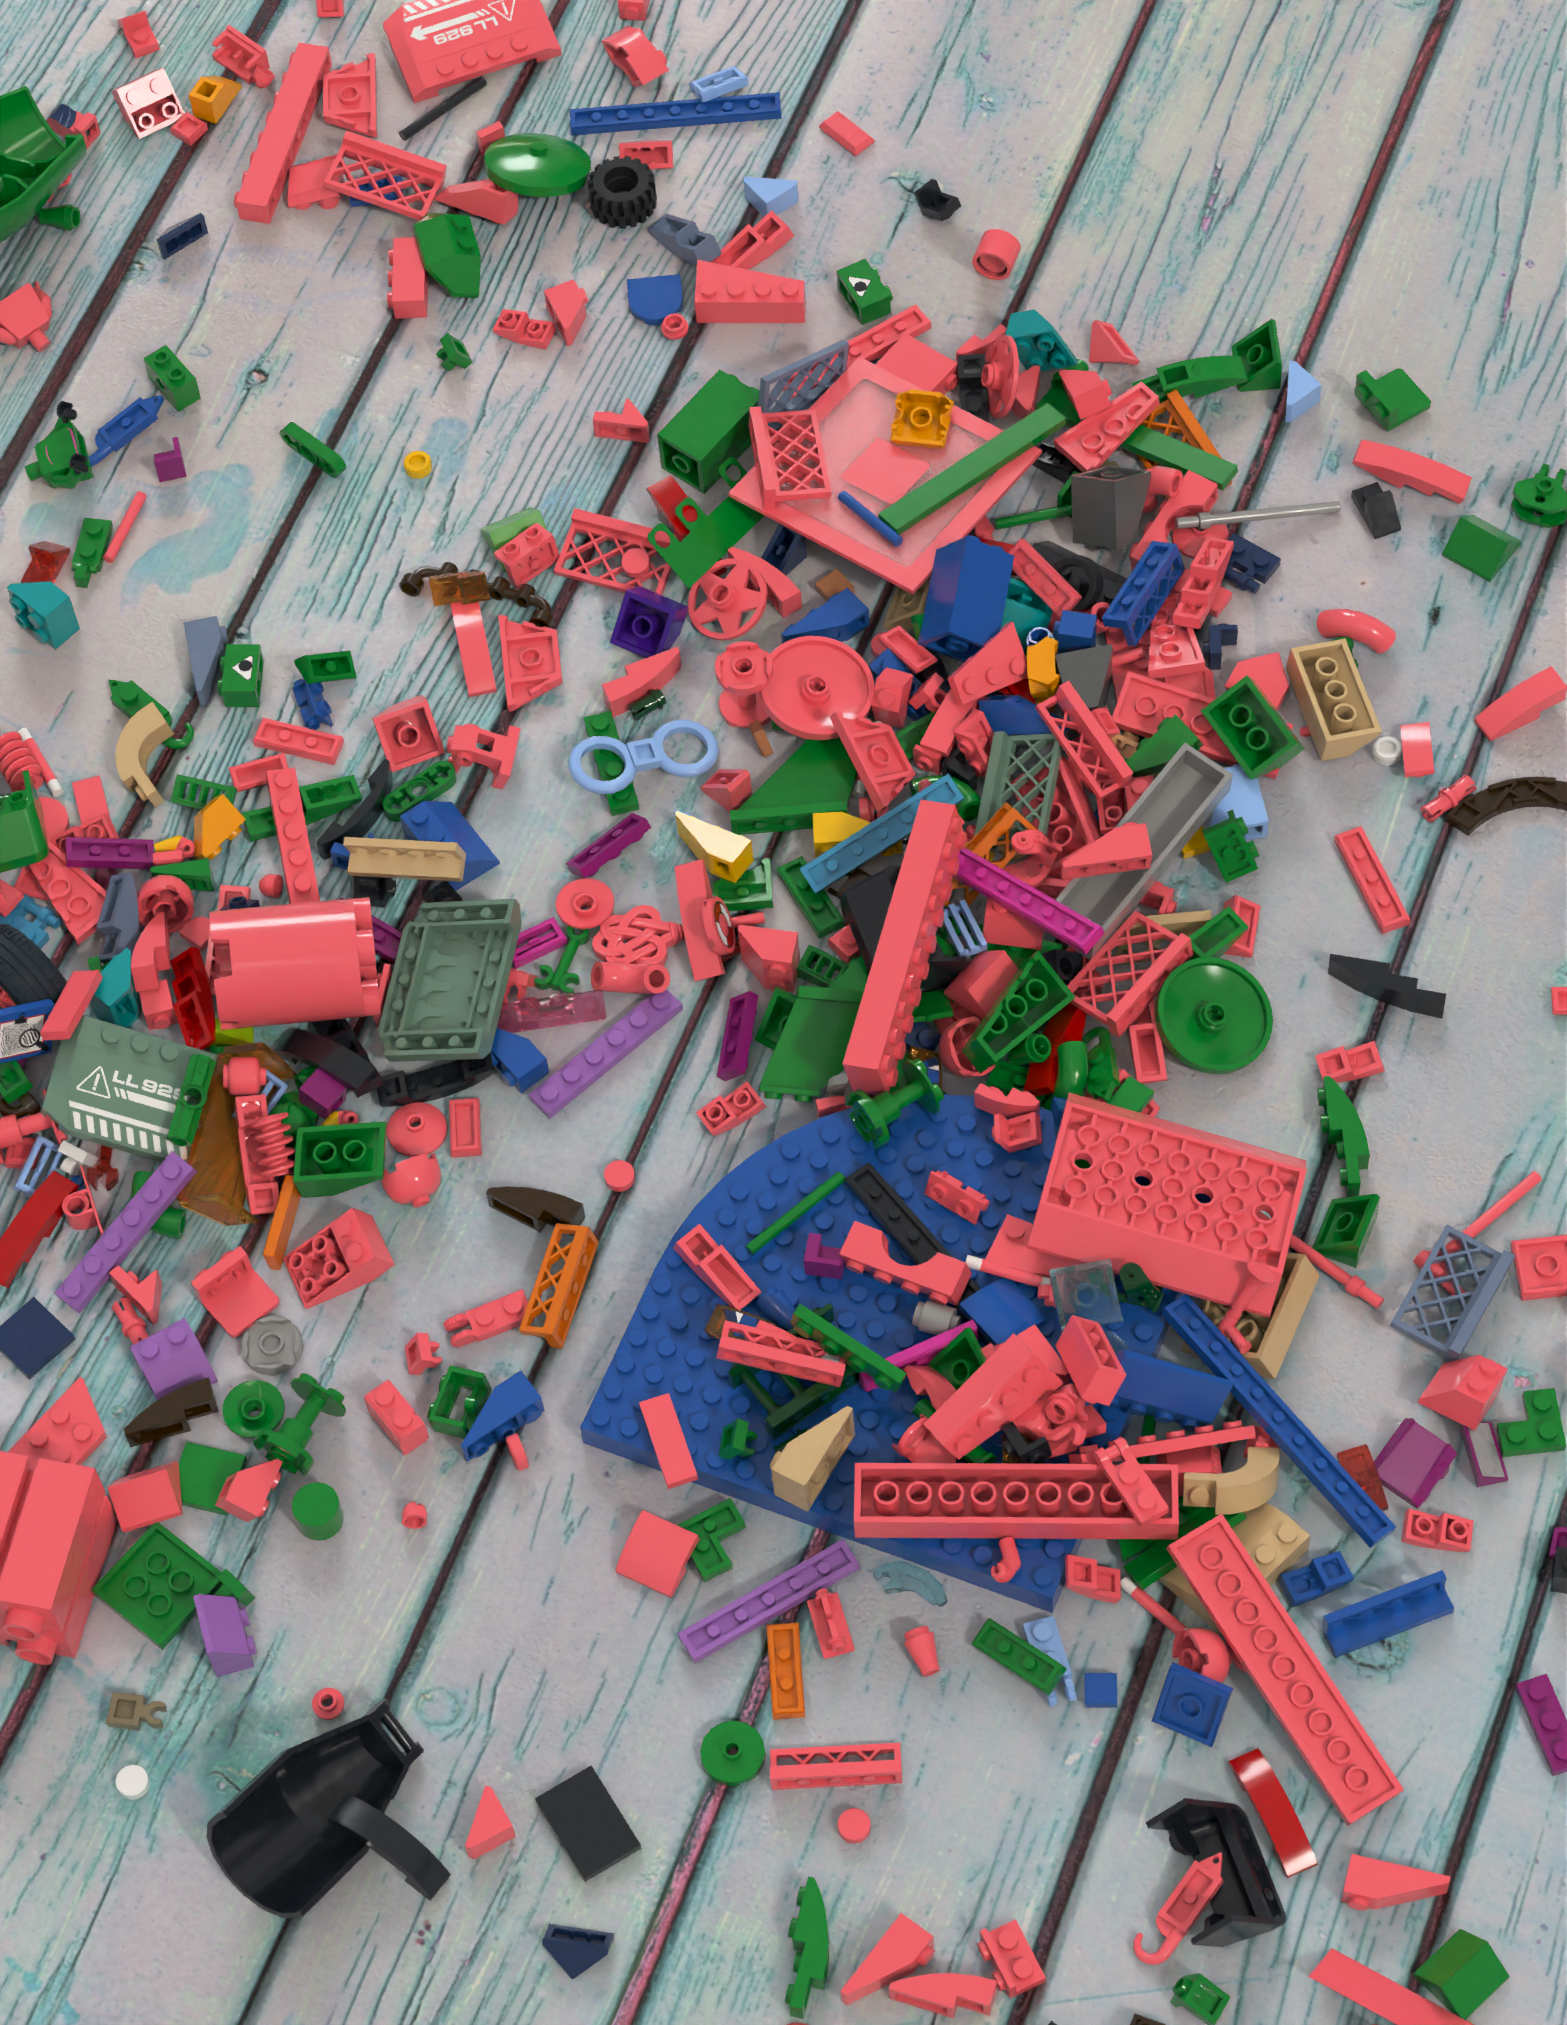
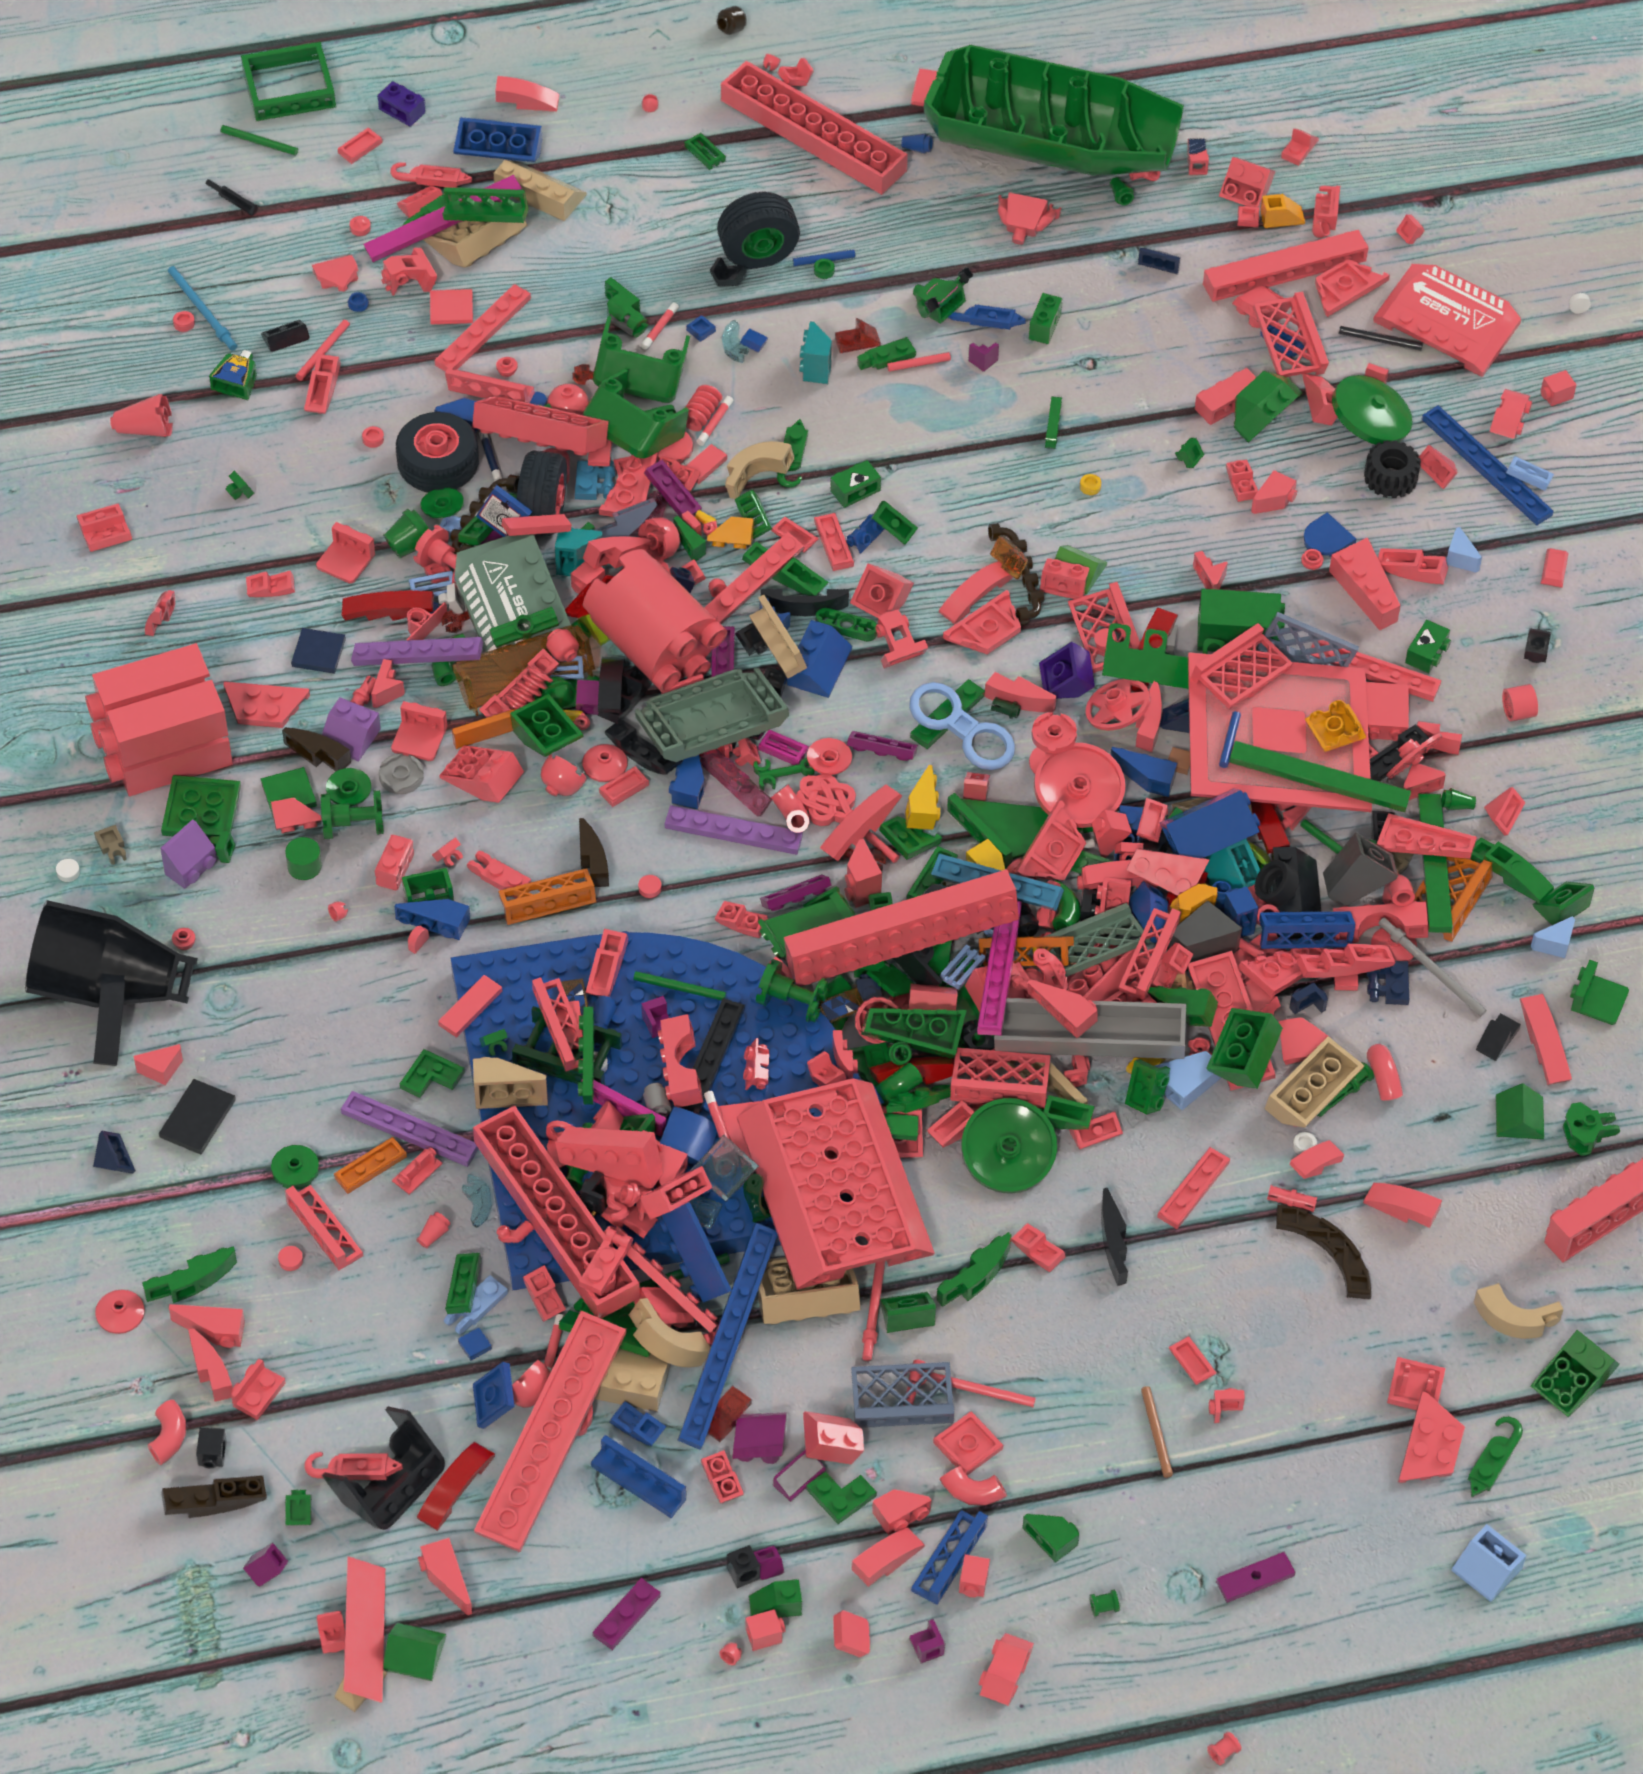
camera: 50 degrees right, 5 degrees down
(147, 1496) = (251, 766): coral slope -> none
(205, 648) = (859, 449): sand blue slope -> none
(656, 1553) = (399, 1050): coral slope -> none
(684, 239) = (1384, 525): sand blue slope -> none
(718, 925) = (861, 826): coral tile -> none
(761, 738) = (1027, 784): nougat tile -> none
(1038, 342) = (1460, 761): teal slope -> none
(1043, 578) = (1262, 860): coral tile -> none
(1086, 391) = (1438, 808): coral slope -> none
(1258, 1276) = (810, 1257): coral piece -> none

